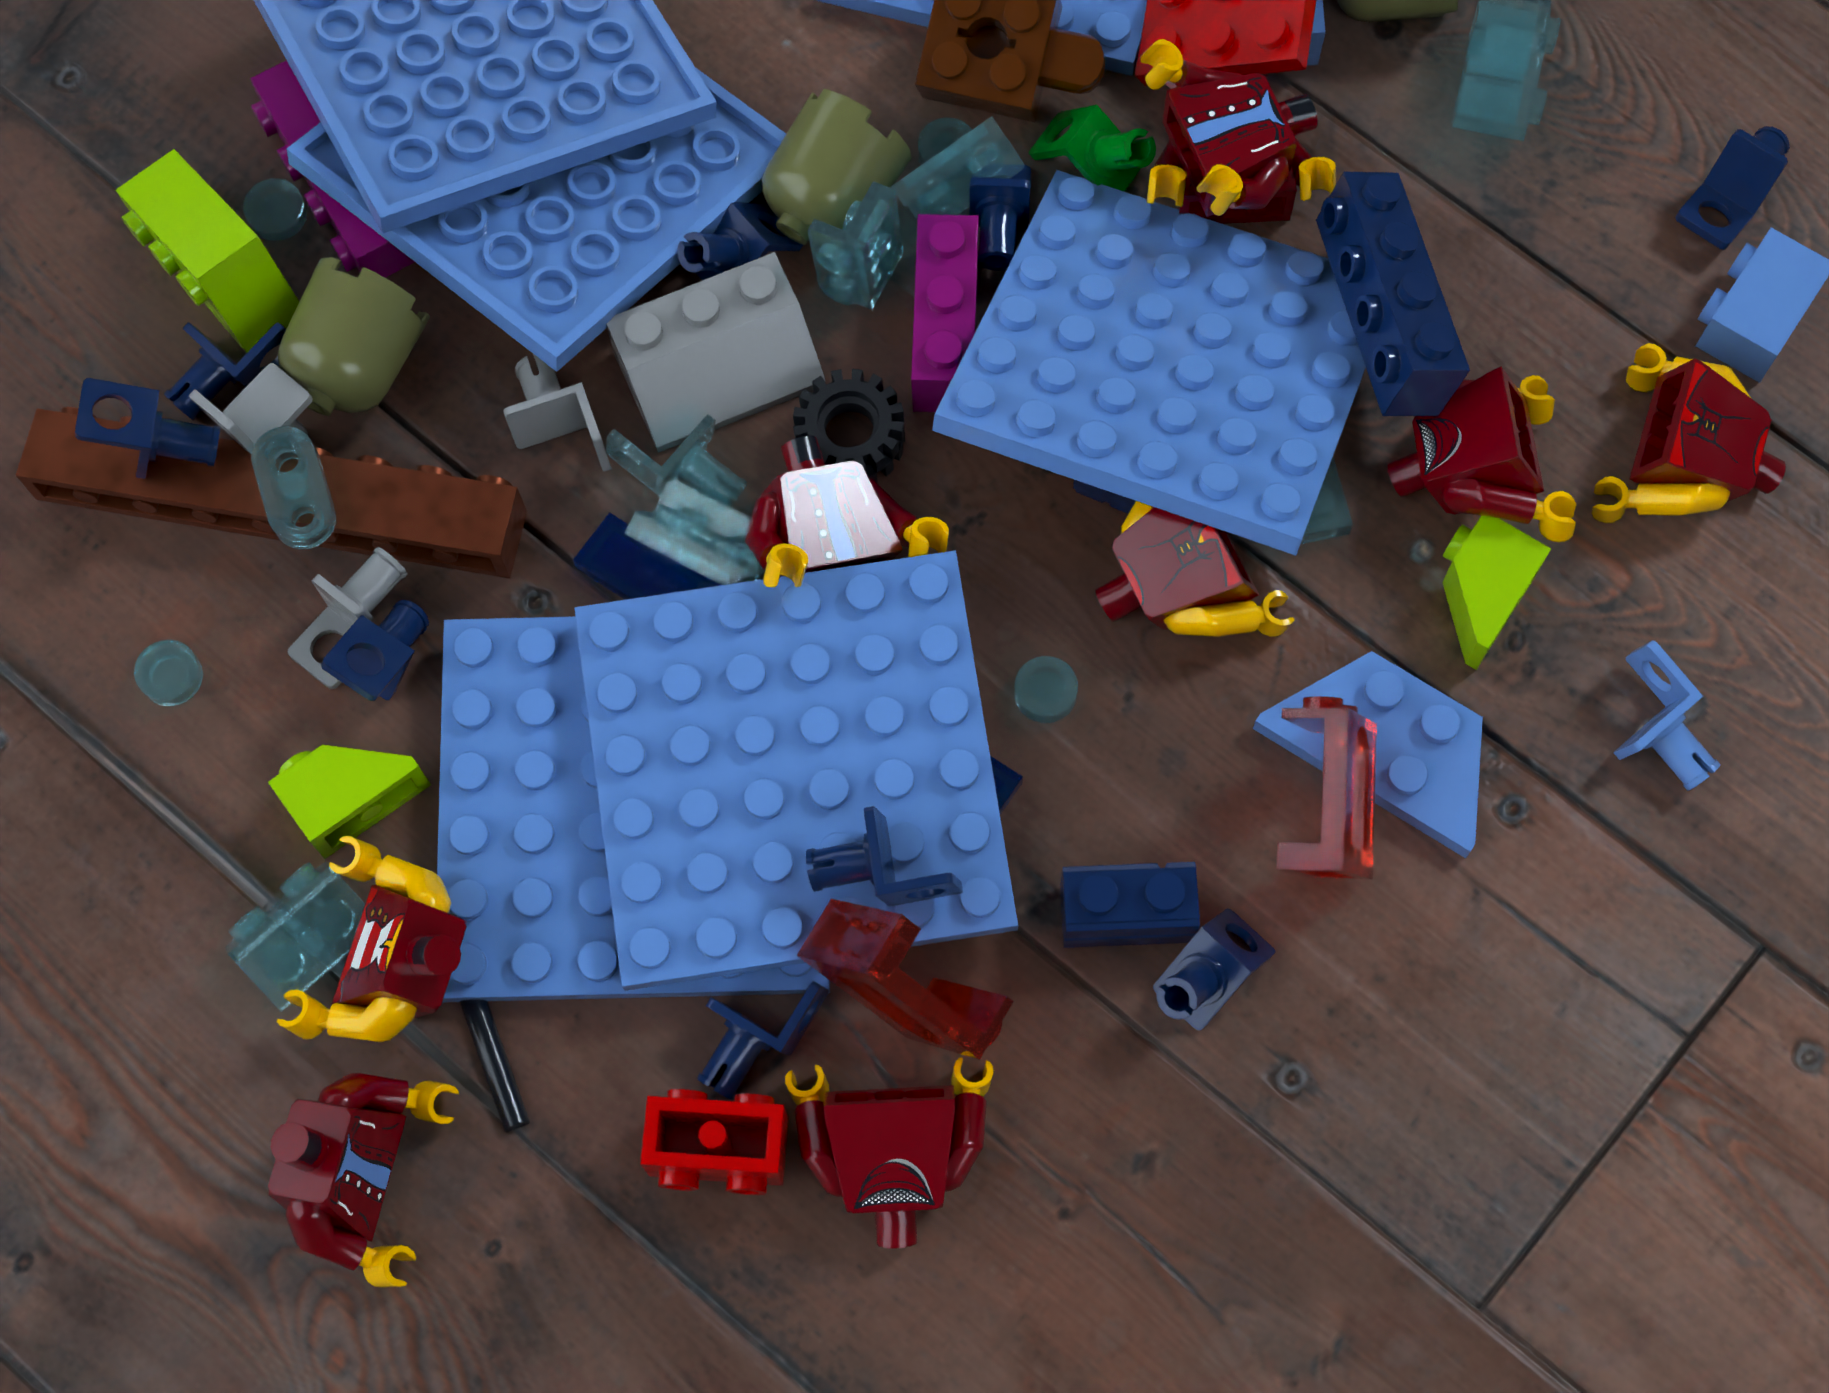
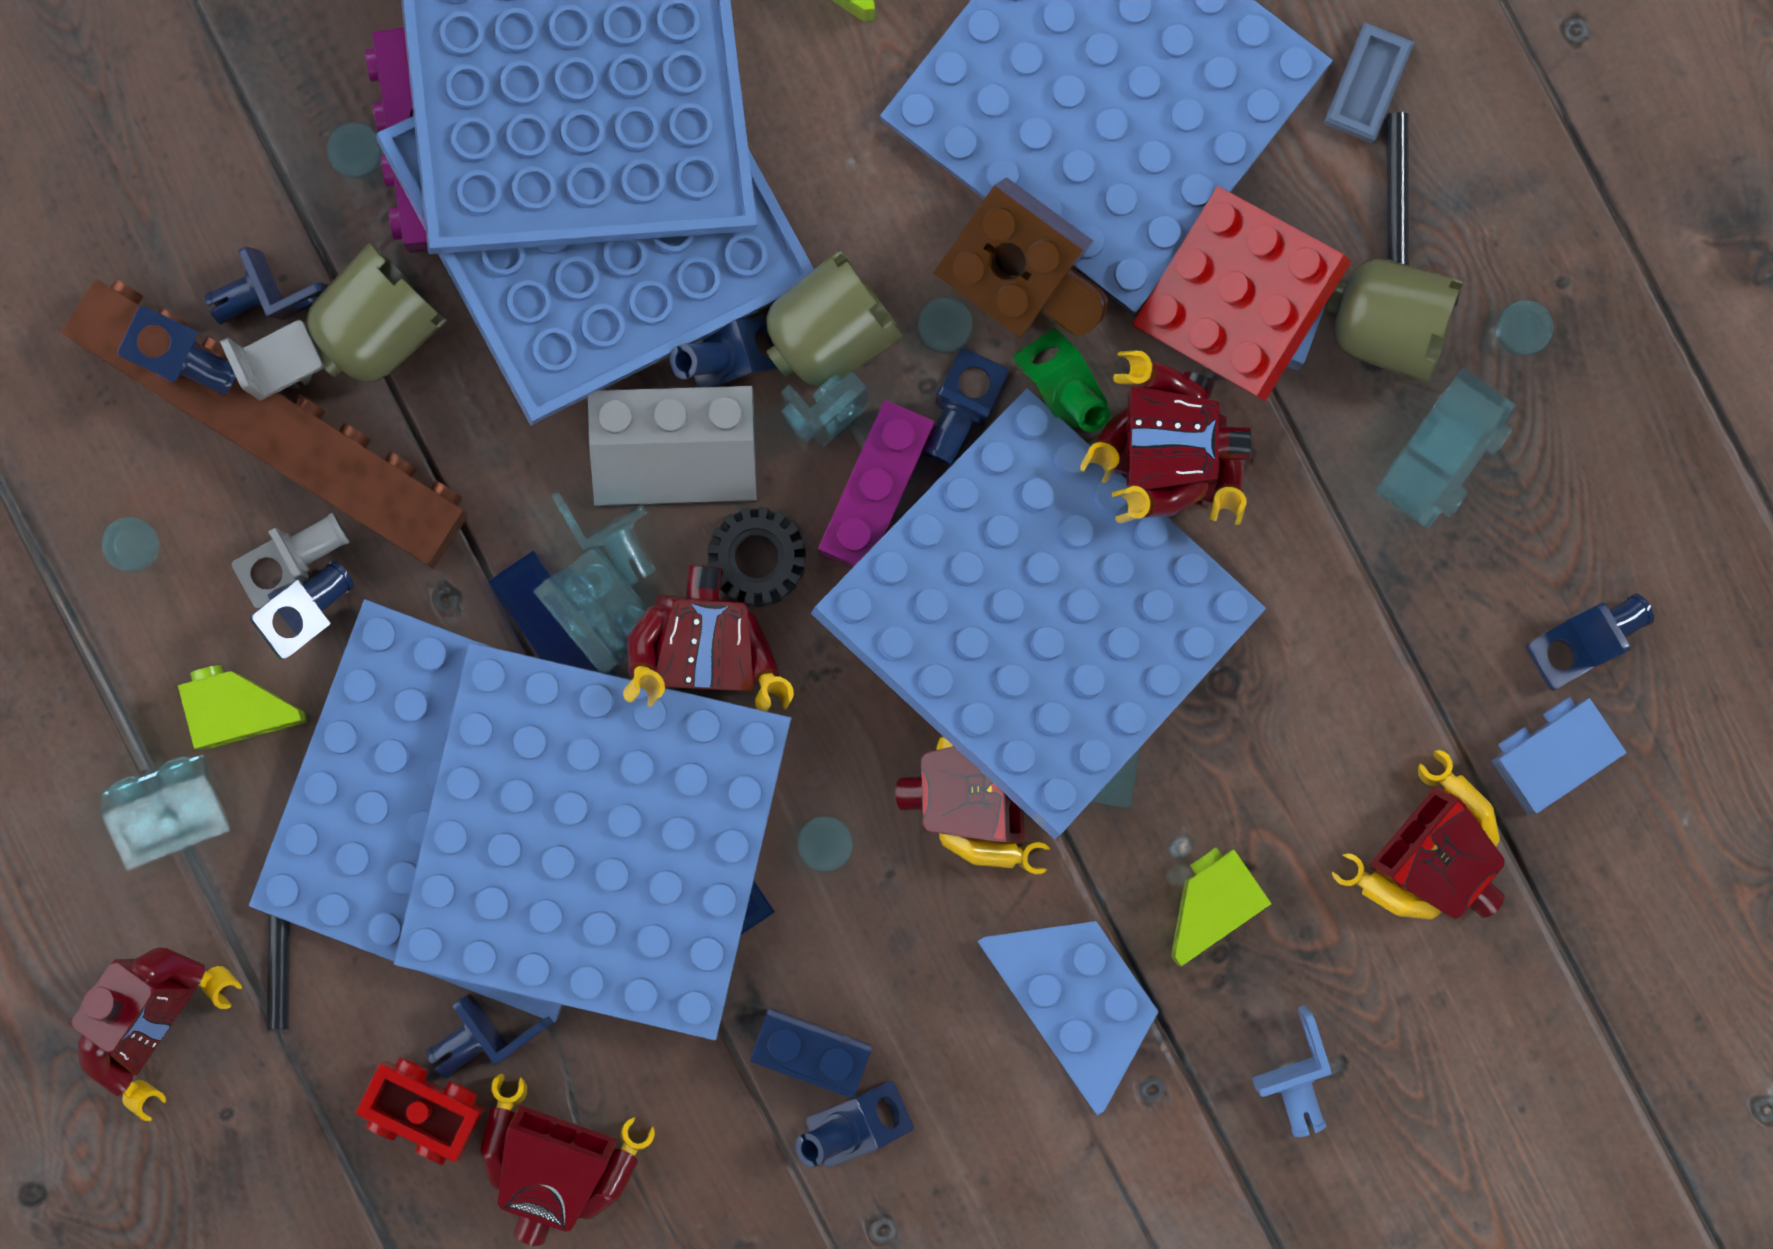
camera: 15 degrees right, 15 degrees up
(209, 247) = (282, 177): lime wedge -> none
(293, 492) = (280, 446): clear light blue plate -> none
(397, 955) = (233, 865): torso -> none
(550, 410) = (519, 443): light grey bracket -> none
(862, 954) = (586, 1034): clear red panel -> none
(873, 861) = (620, 956): dark blue bracket -> none
(944, 180) = (937, 362): clear light blue bracket -> none
(1346, 793) = (978, 1084): clear red panel -> none
(1391, 294) = (1240, 637): dark blue brick -> none
(1485, 457) = (1255, 797): dark red torso -> none

